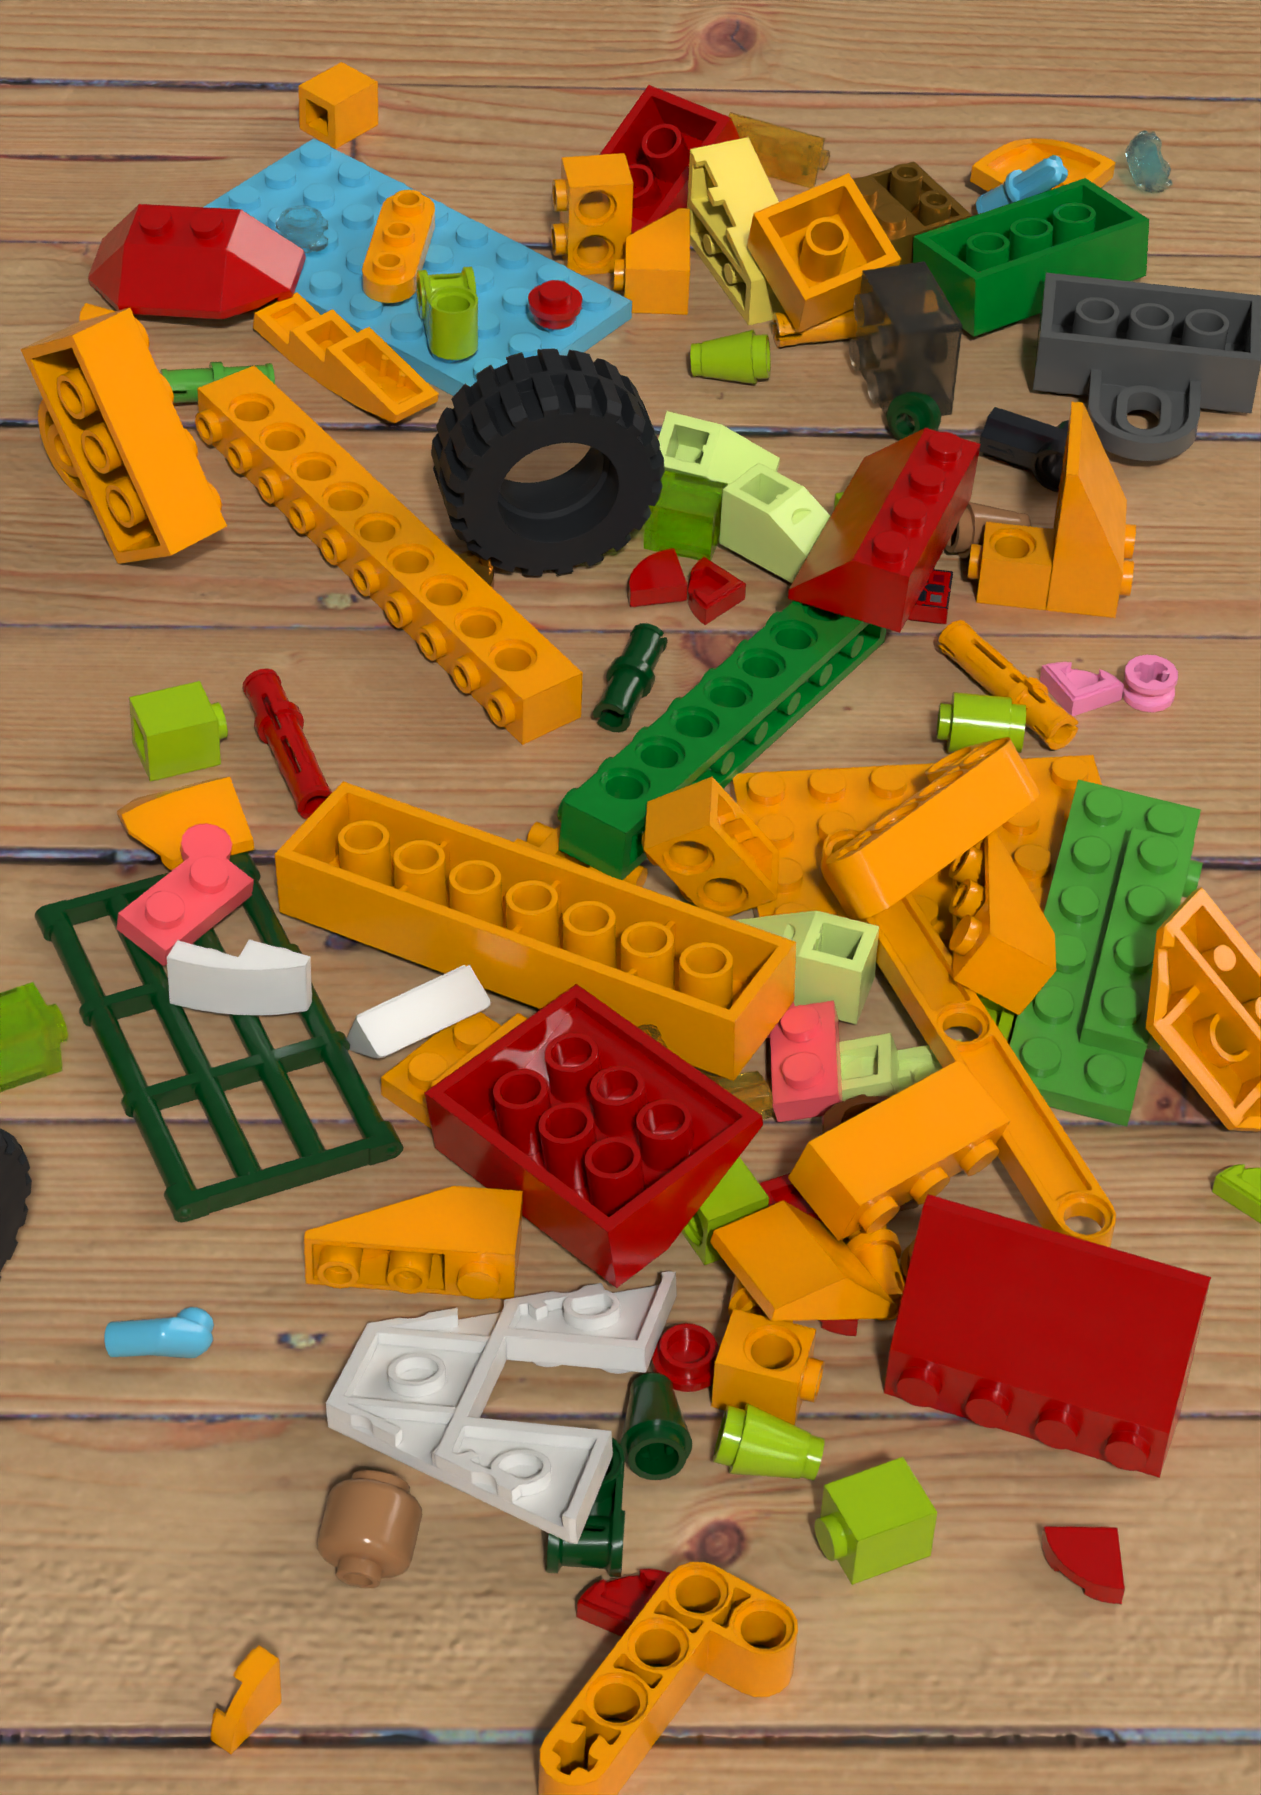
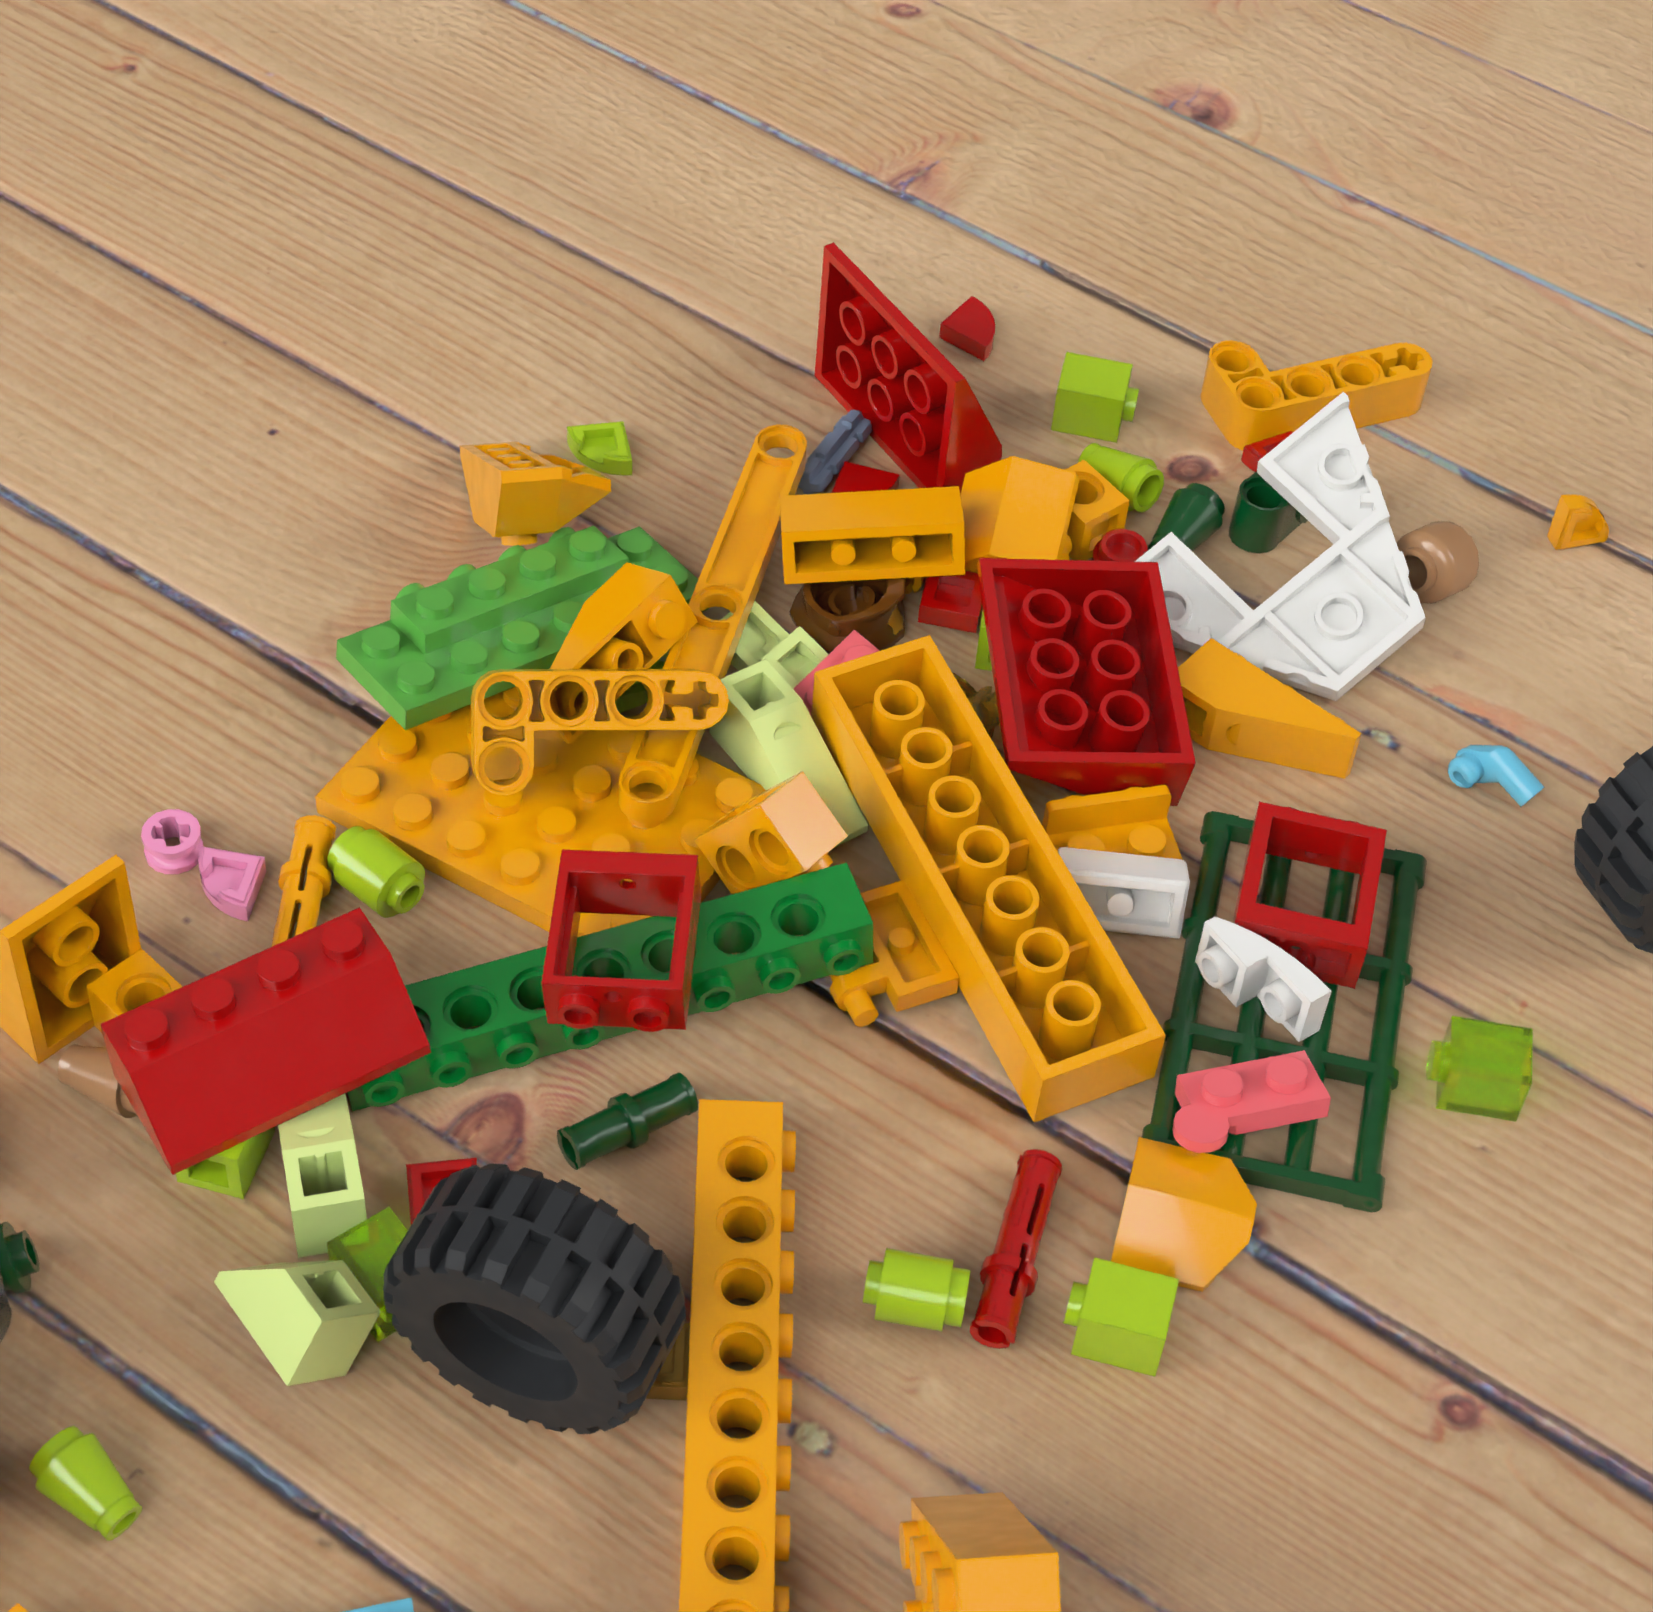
camera: 145 degrees left, 5 degrees up
(234, 1023) = (1327, 946): none -> red window
(333, 675) = (916, 1290): none -> lime brick
(719, 725) = (596, 884): none -> red window

